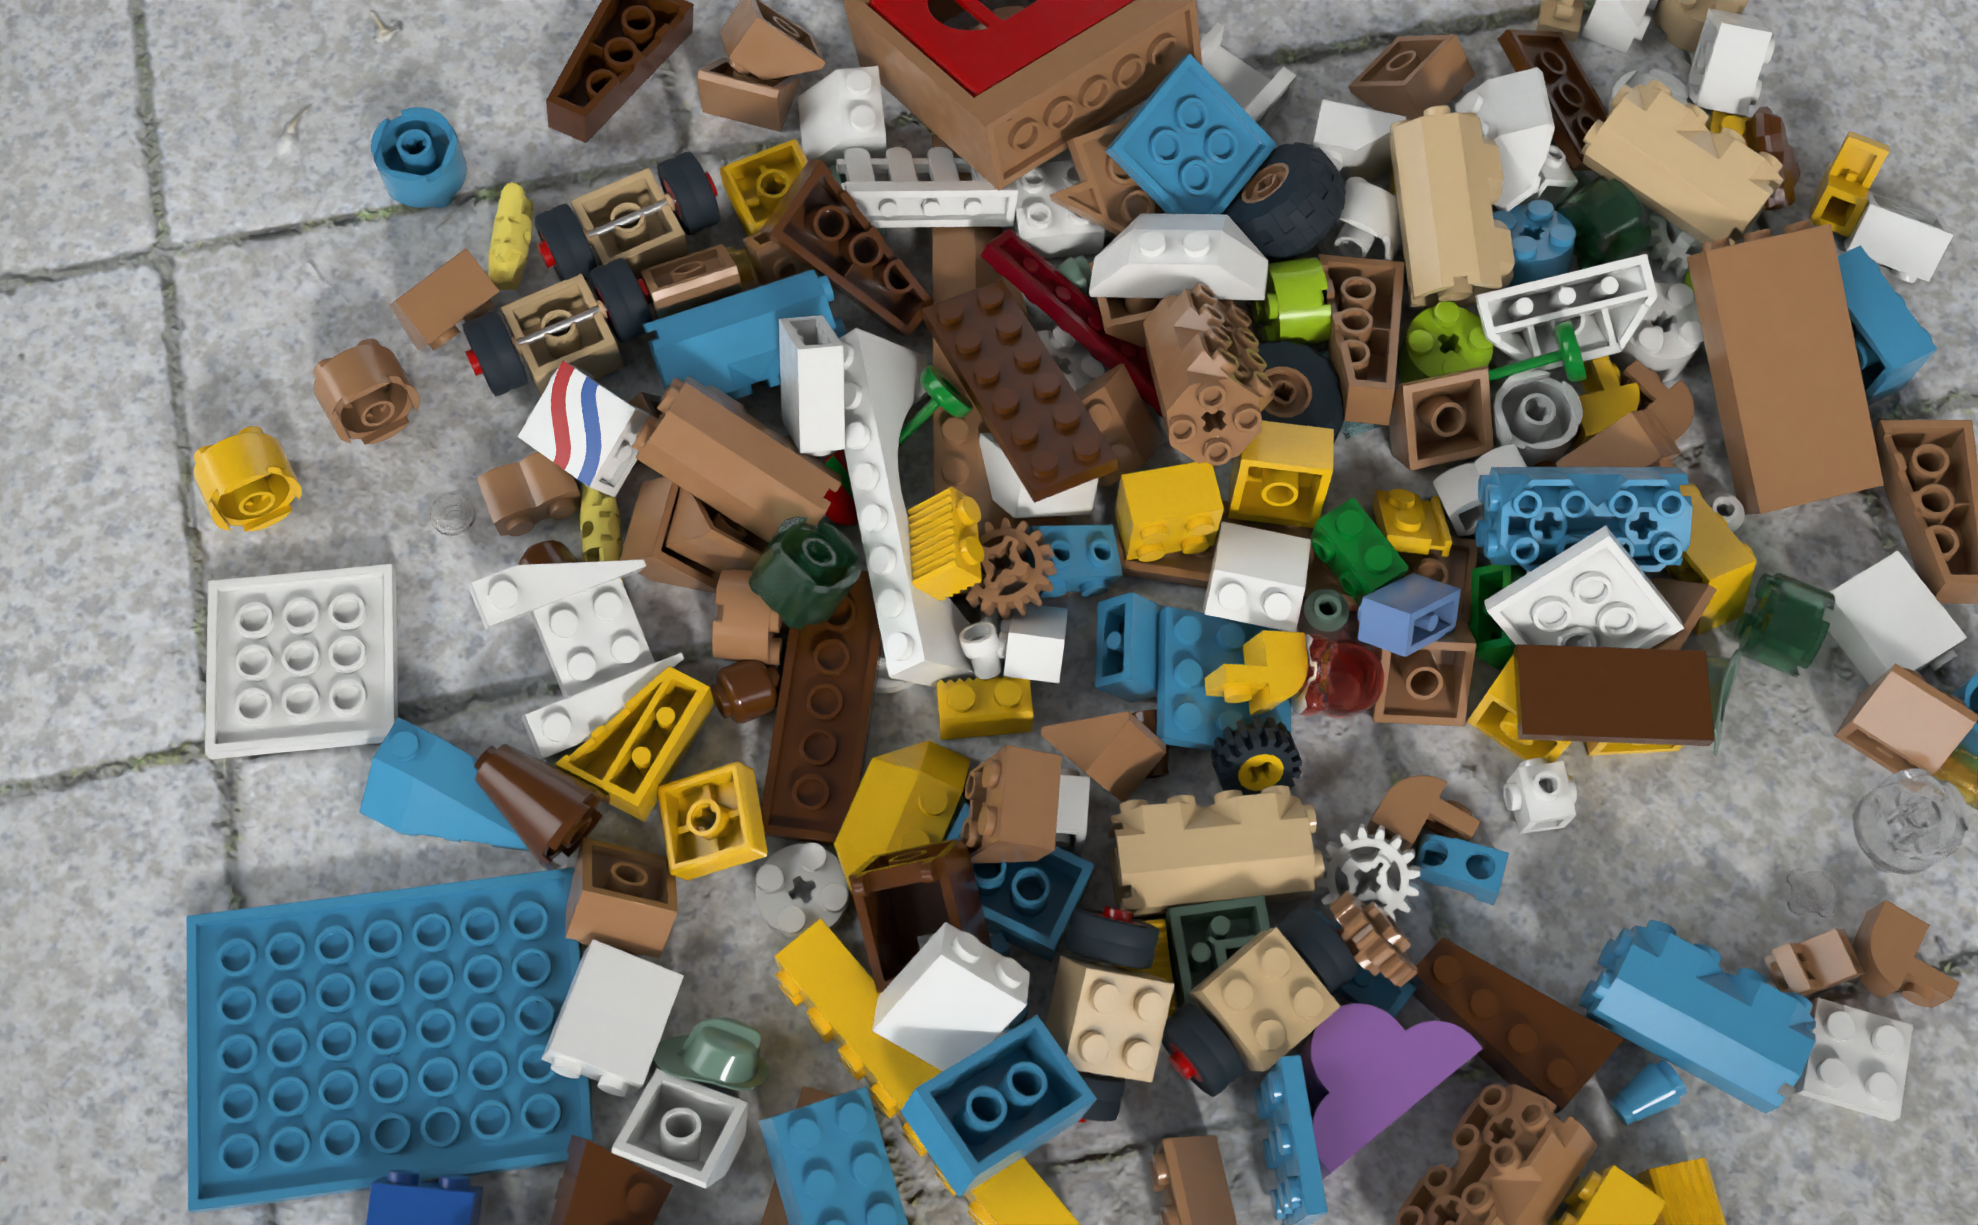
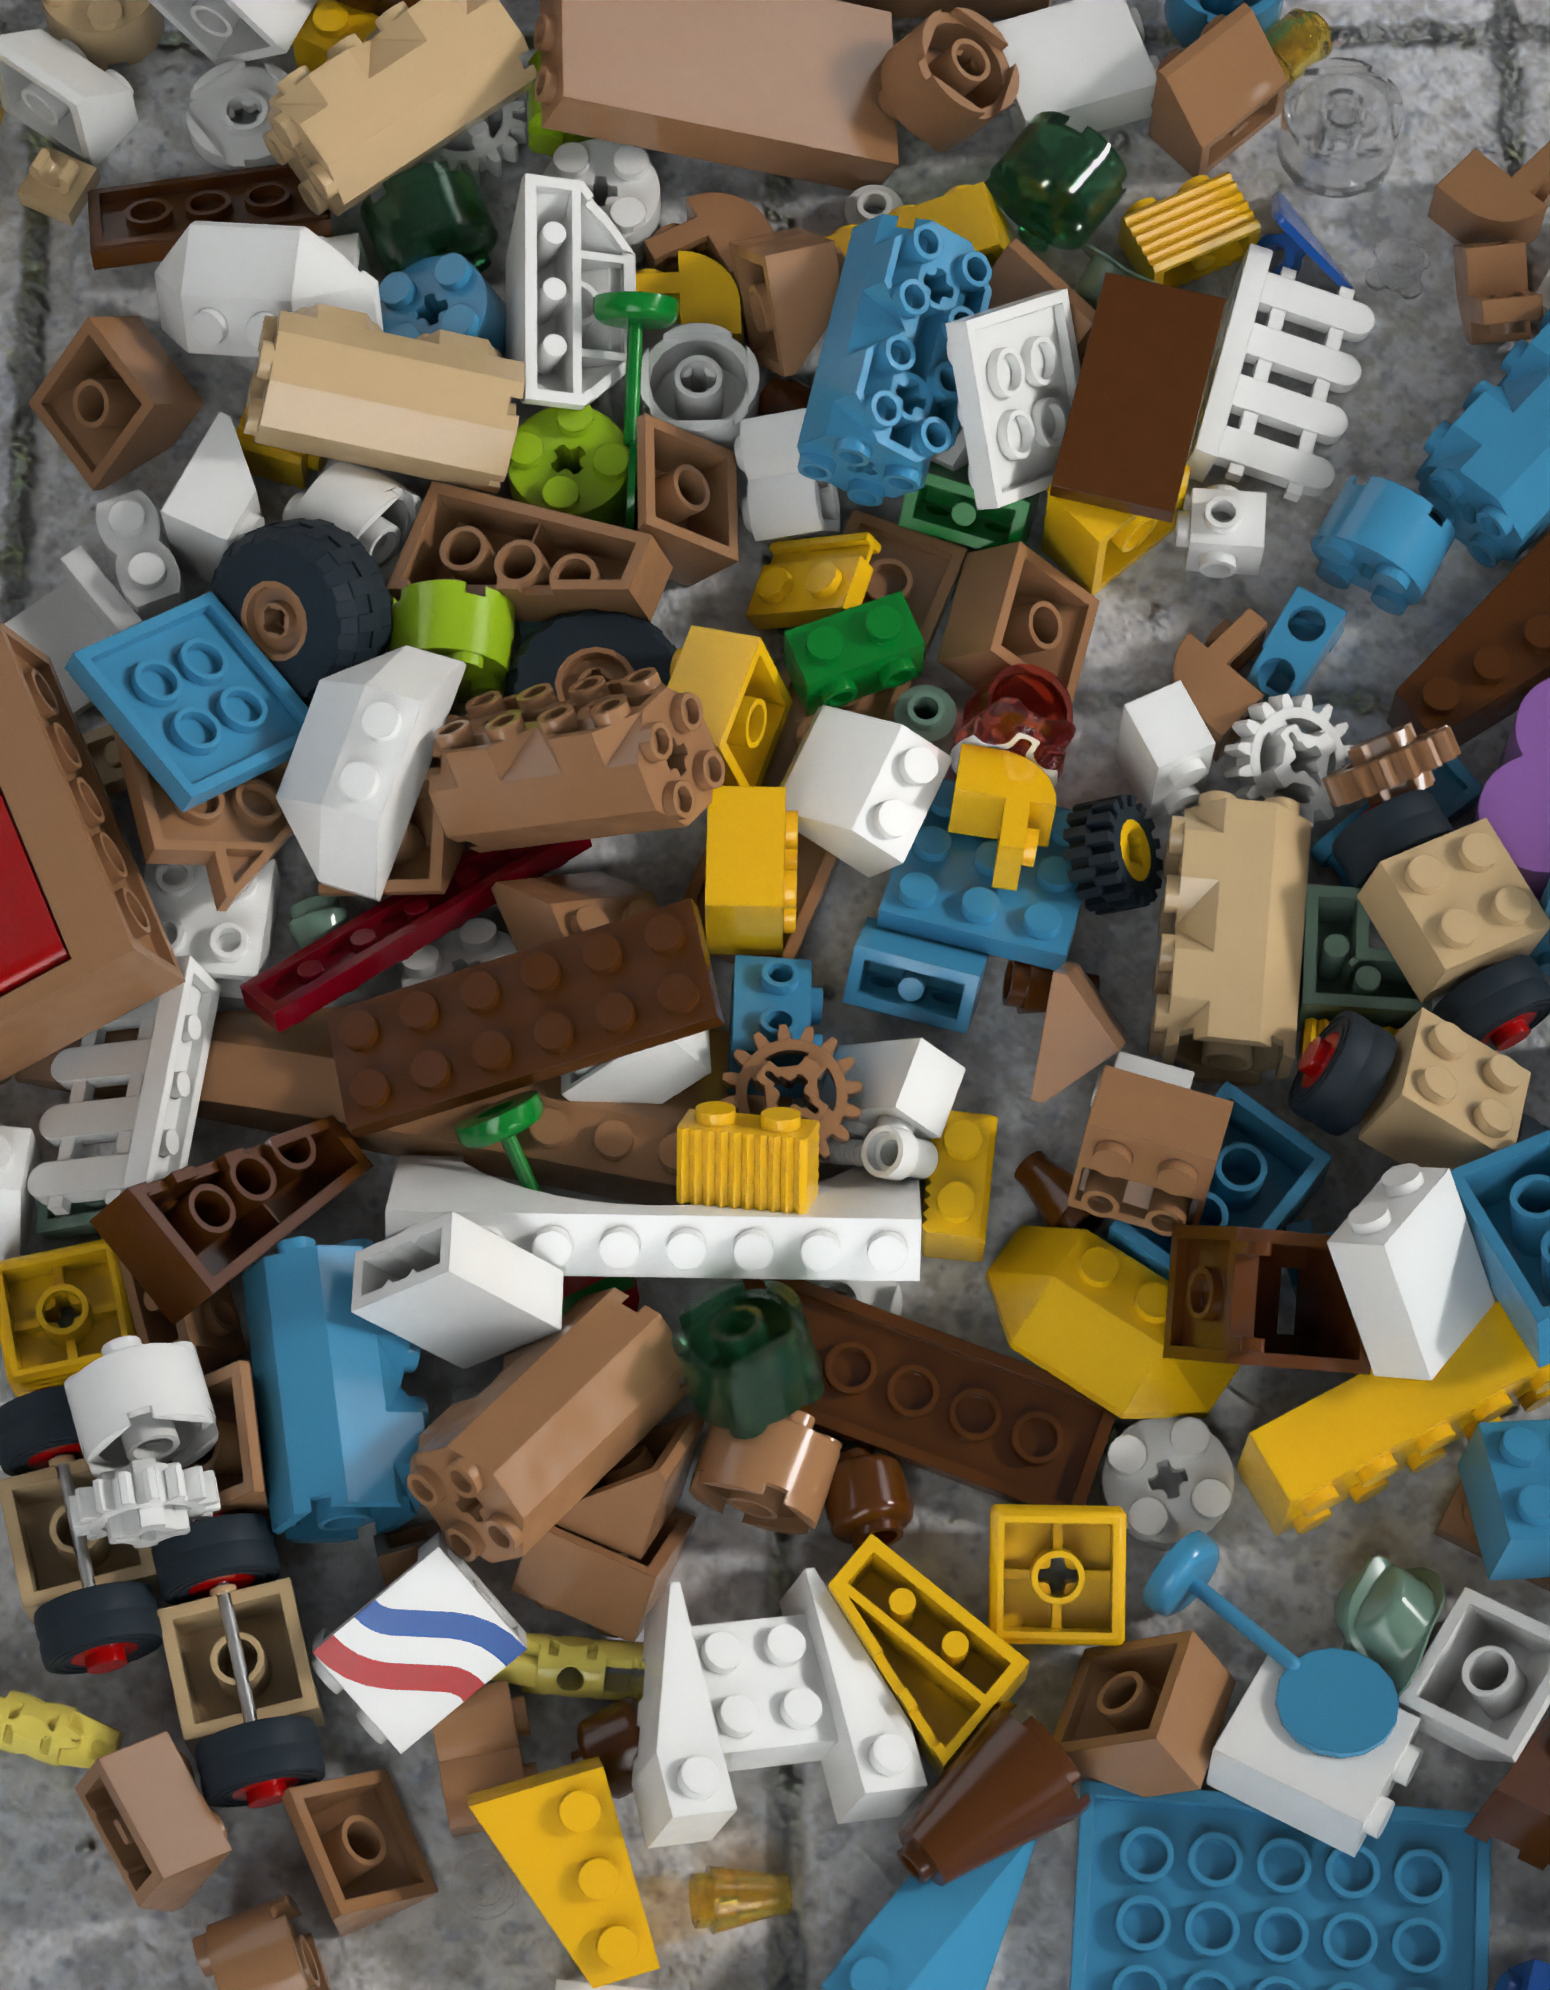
camera: 75 degrees left, 0 degrees up
(459, 429) = (359, 1848): none -> medium nougat slope
(459, 543) = (574, 1864): none -> yellow wedge
(463, 663) = (736, 1897): none -> clear yellow cone
(632, 234) = (144, 1503): none -> white gear
(646, 1019) = (1325, 1699): none -> dark azure piece
(693, 218) = (142, 1405): none -> white brick
(1295, 115) = (139, 554): none -> white brick
(1347, 781) = (1165, 750): none -> white brick
(1408, 614) = (965, 611): medium blue brick -> none
(1566, 910) = (1381, 542): none -> dark azure brick
(1706, 809) = (1286, 354): none -> white fence
(1782, 730) = (1189, 231): none -> yellow brick
(1810, 808) = (1298, 242): none -> blue piece
(1841, 529) = (948, 78): none -> medium nougat brick

